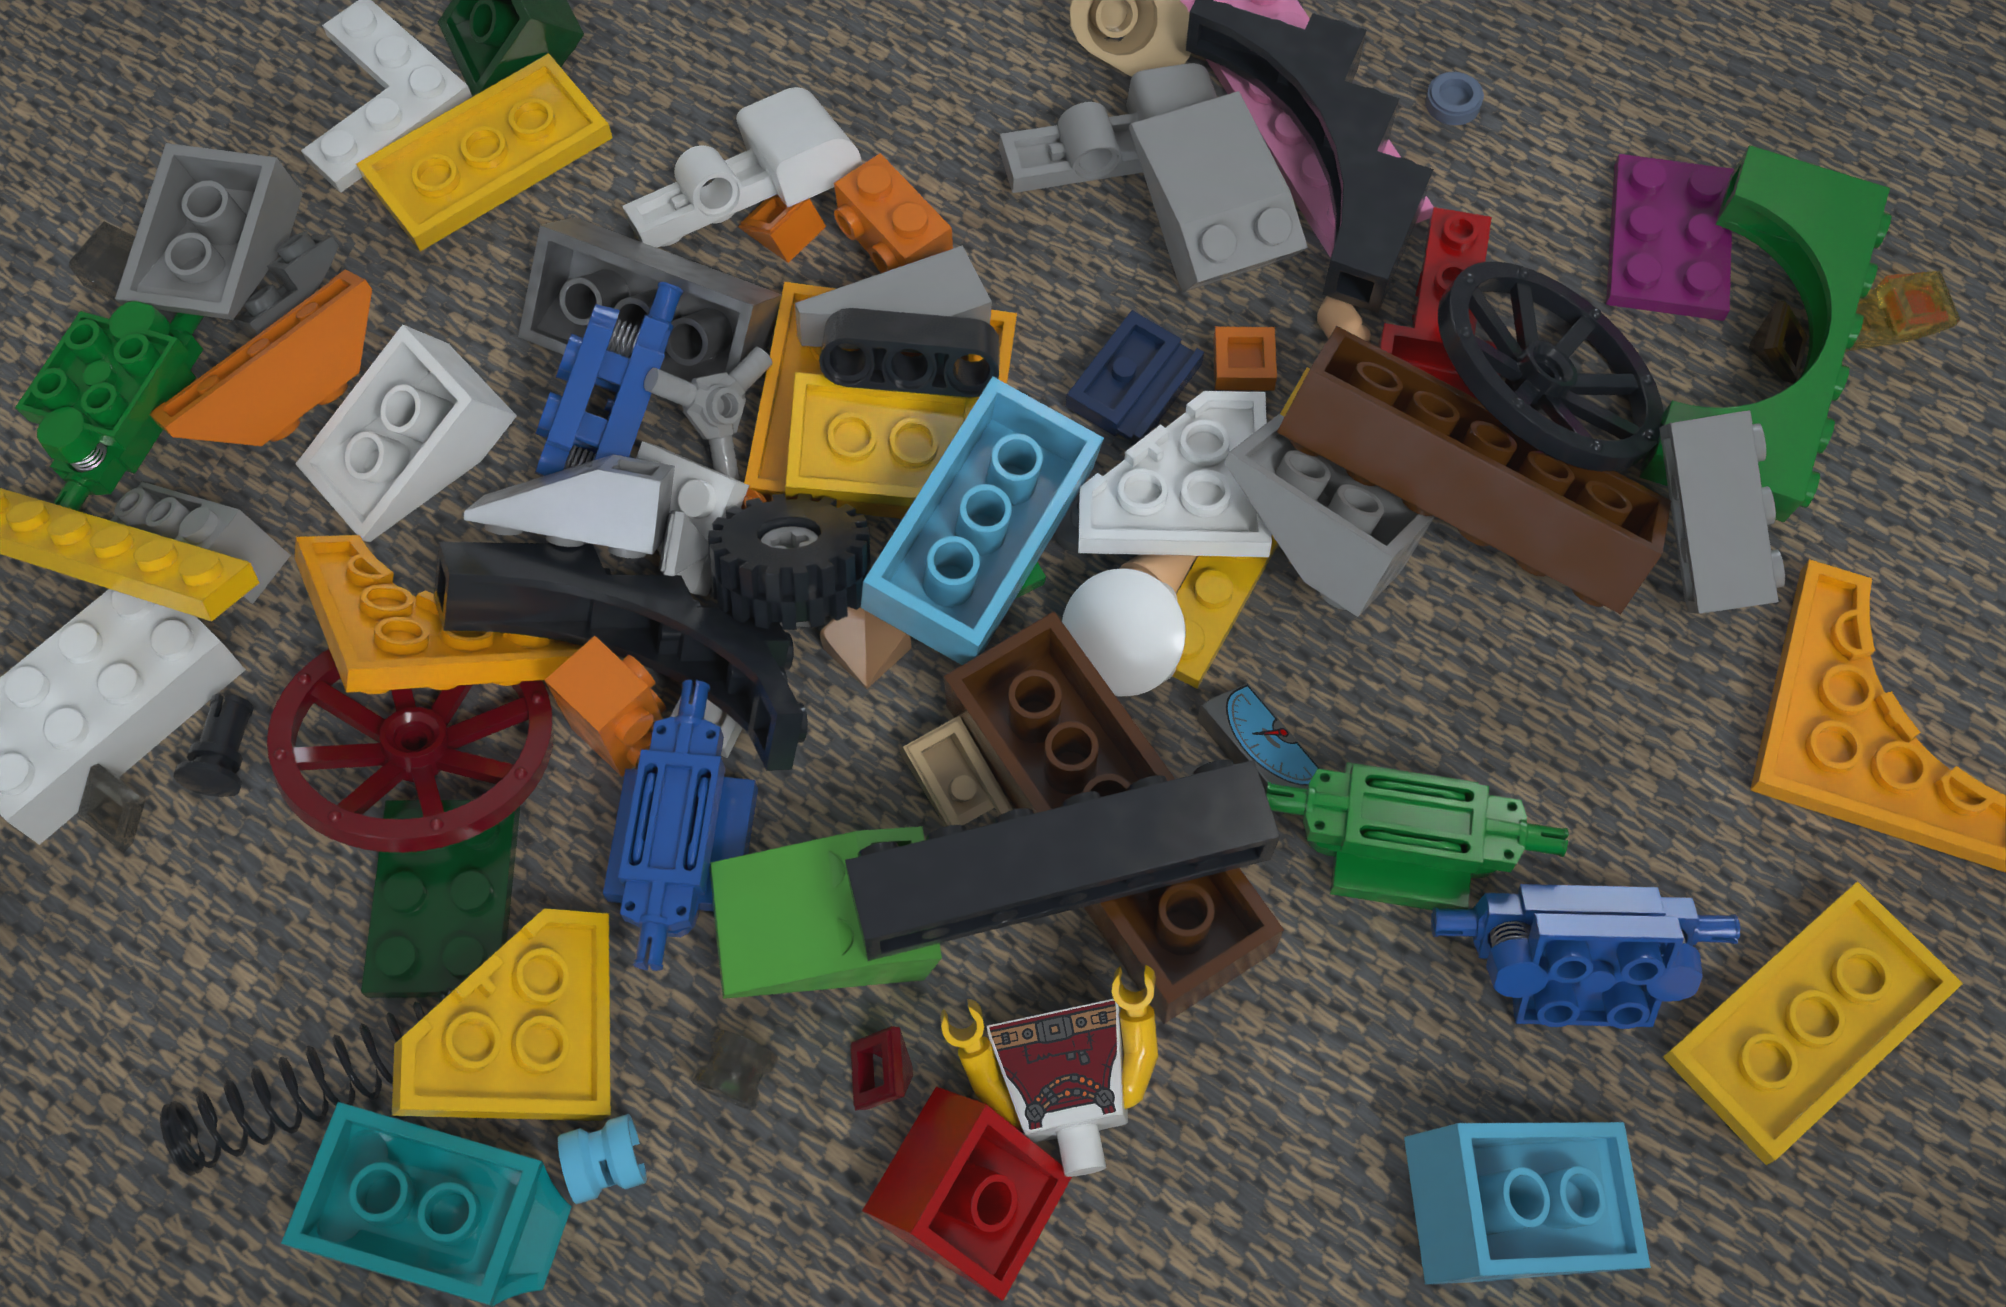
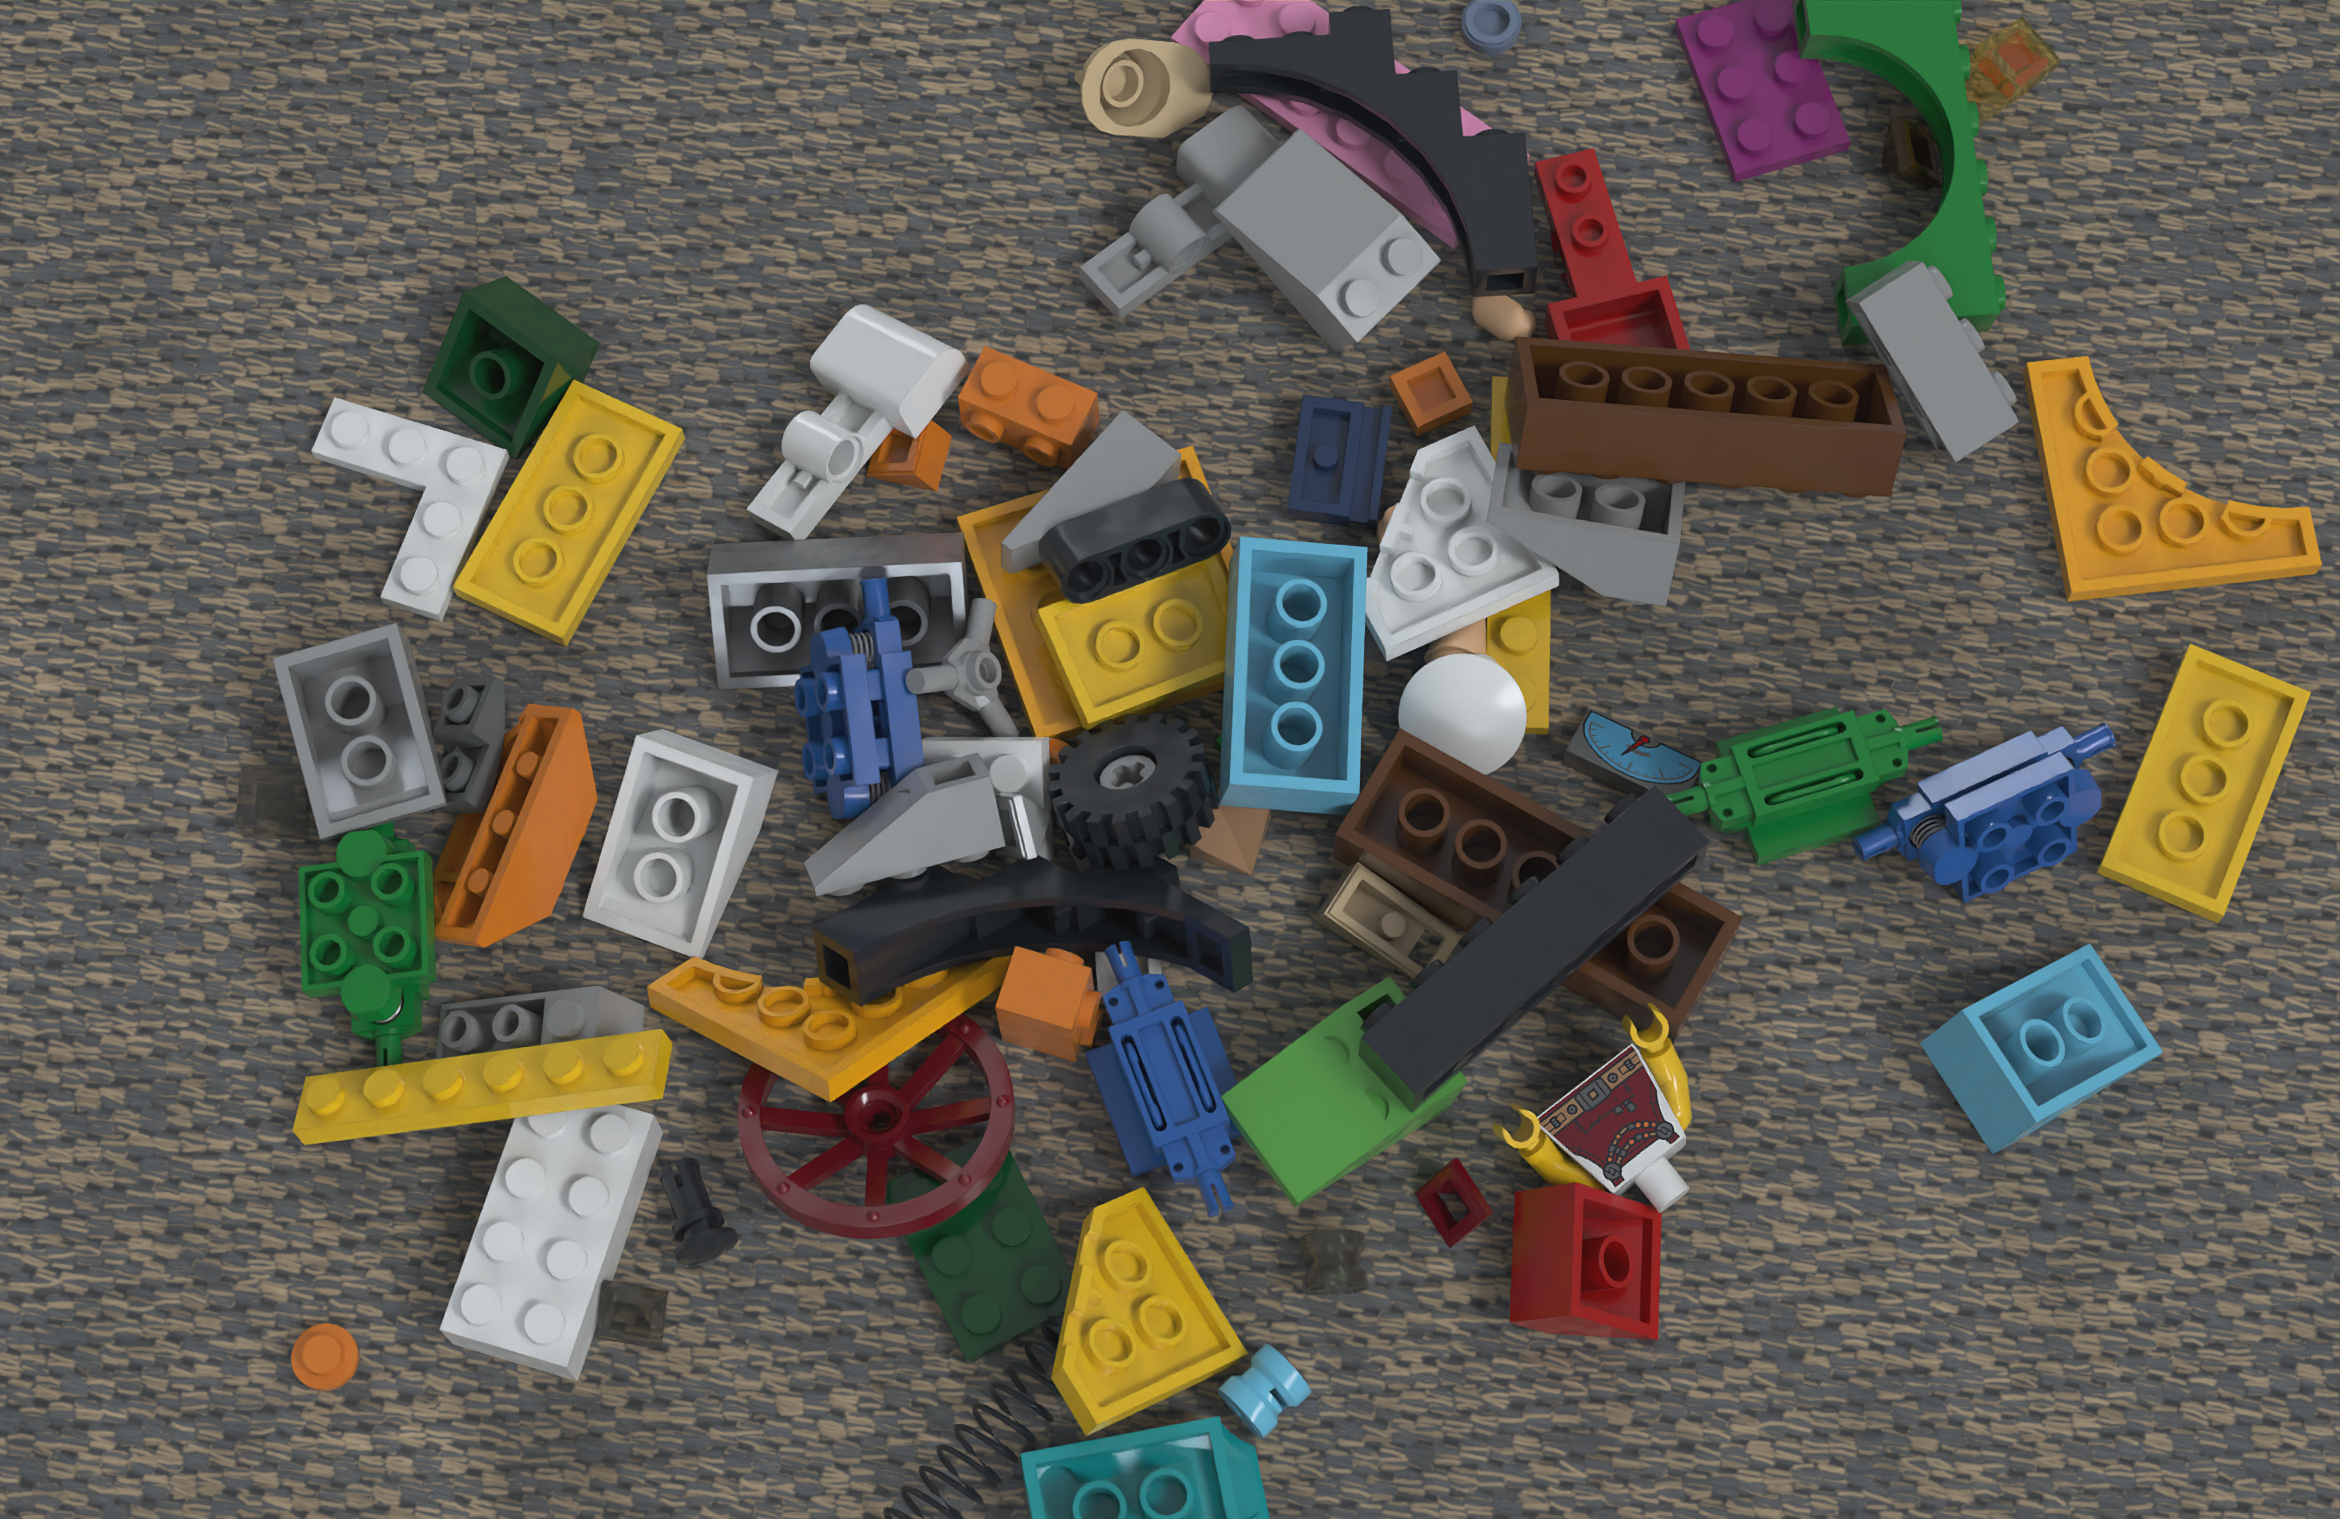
camera: 25 degrees left, 5 degrees up
(1542, 374) = (1715, 291): black wheel -> none

